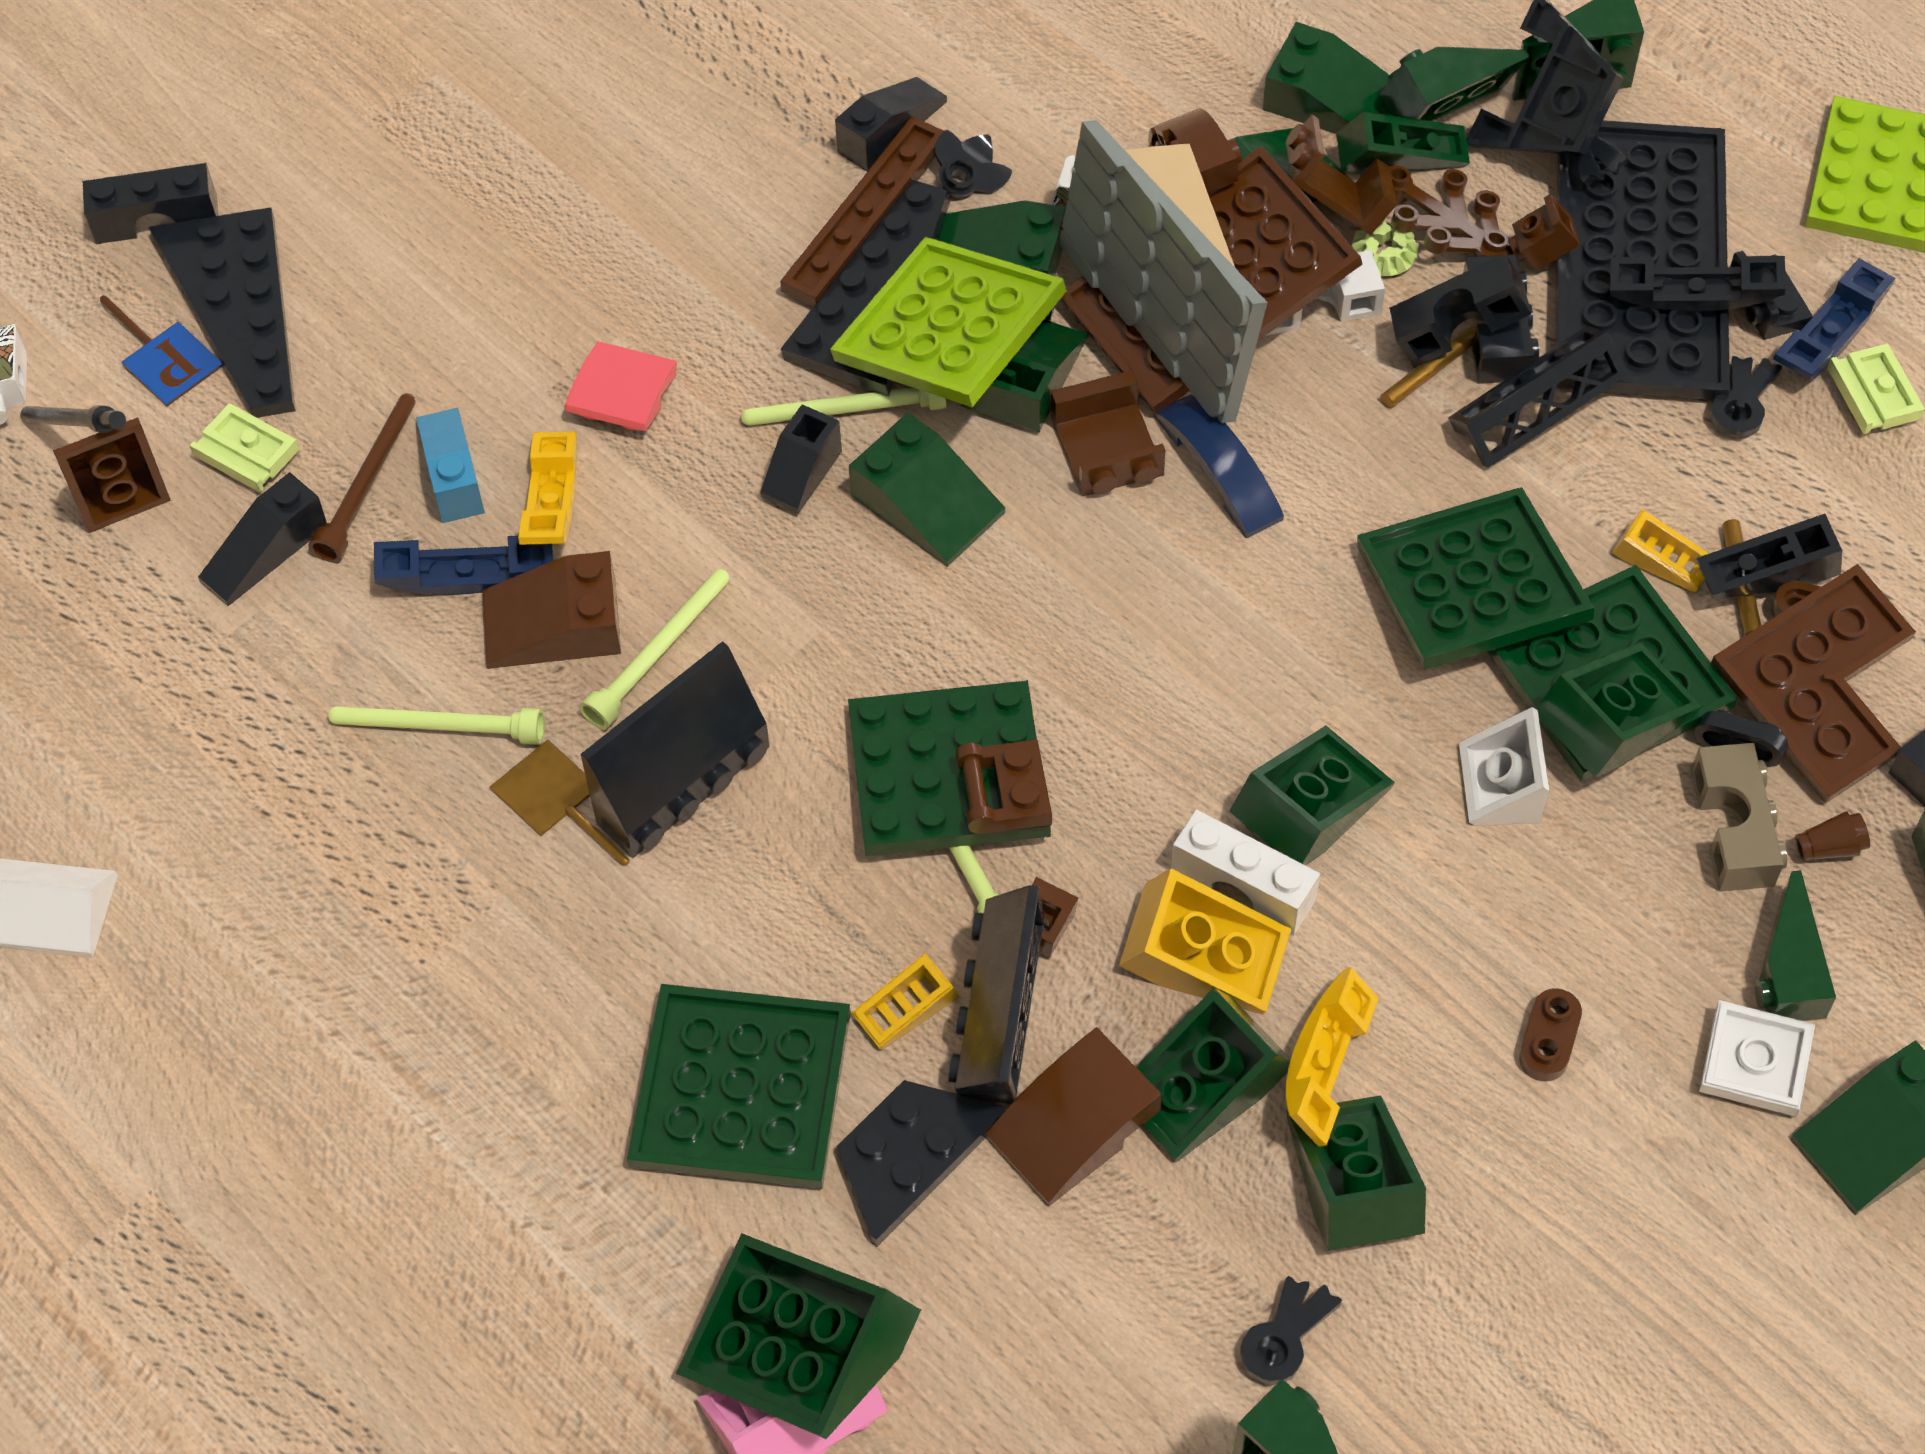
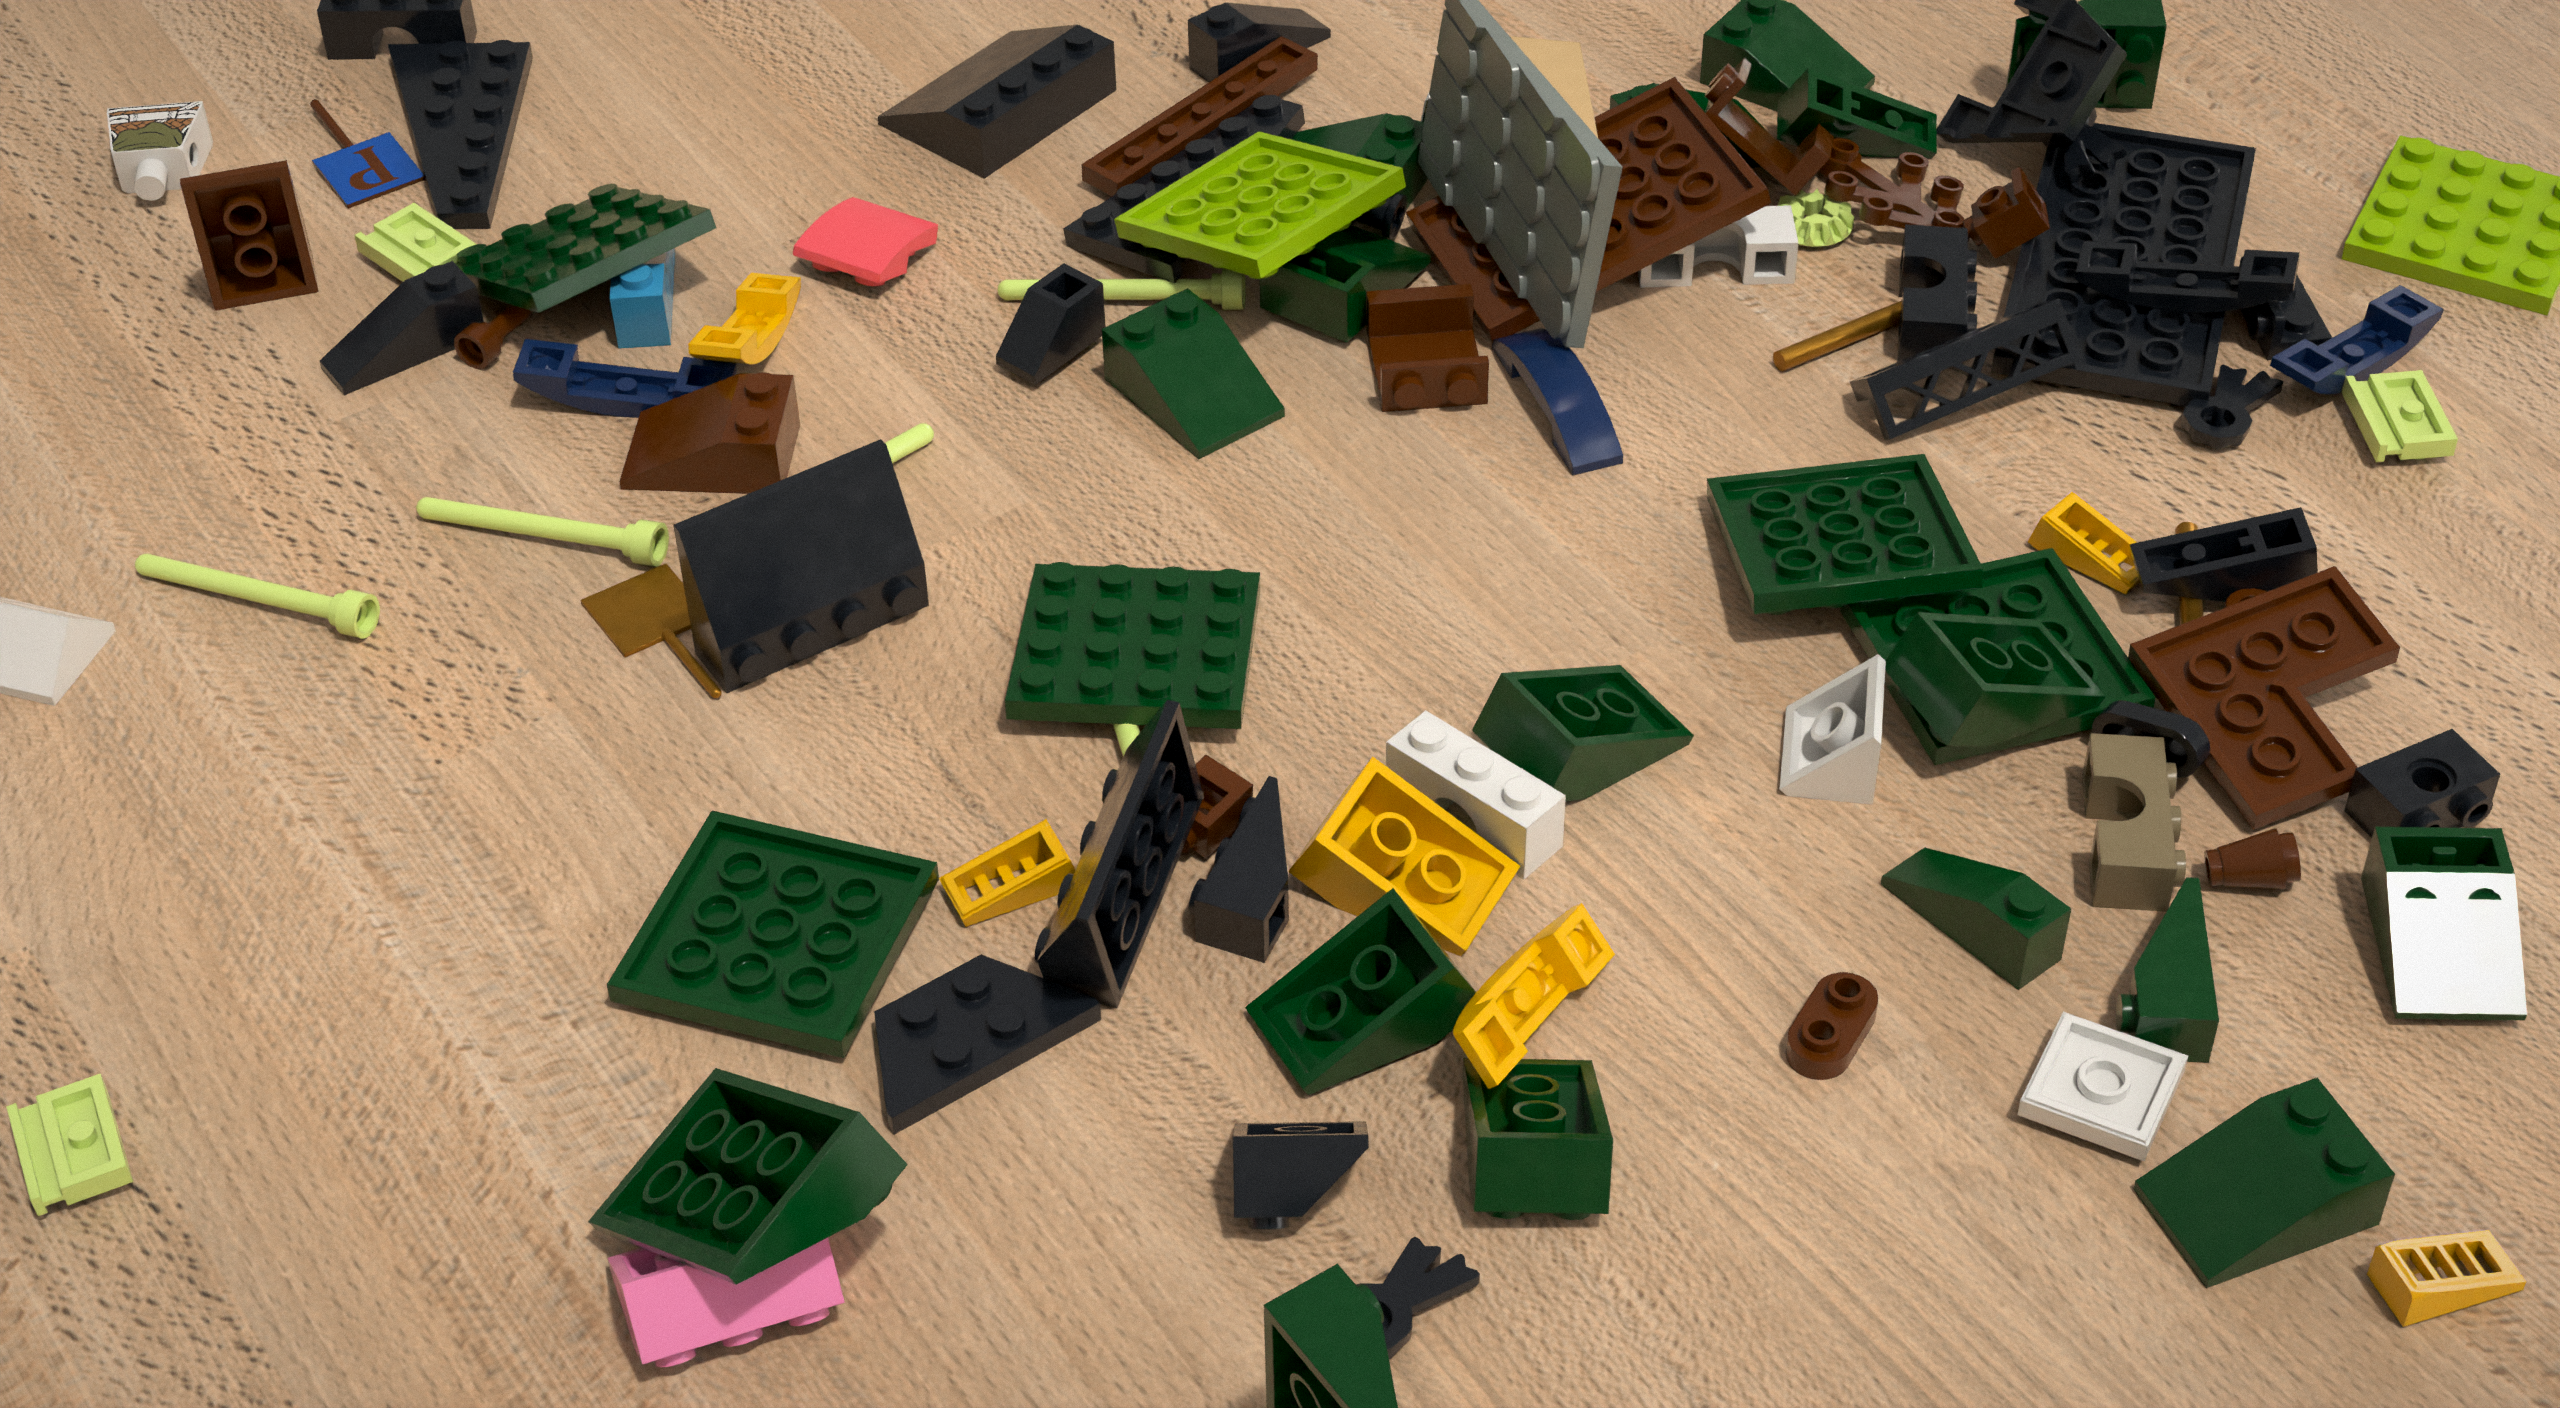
camera: 10 degrees right, 15 degrees down
(97, 418) = (239, 152): bar -> none
(253, 1371) = (69, 1144): none -> yellowish green plate
(309, 833) = (350, 612): none -> yellowish green piece
(389, 437) = (581, 246): none -> dark green plate
(692, 209) = (1007, 96): none -> black slope
(971, 162) = (1335, 90): black plate -> none
(1019, 783) = (1211, 661): reddish brown plate -> none
(1074, 1116) = (1185, 1019): reddish brown slope -> none
(1096, 978) = (1246, 893): none -> black slope
(1187, 1230) = (1290, 1166): none -> black slope
(1213, 153) = (1612, 77): reddish brown brick -> none
(1428, 319) = (1916, 250): black arch -> none
(1447, 80) = (1929, 57): dark green slope -> none
(1641, 913) = (1986, 910): none -> dark green slope

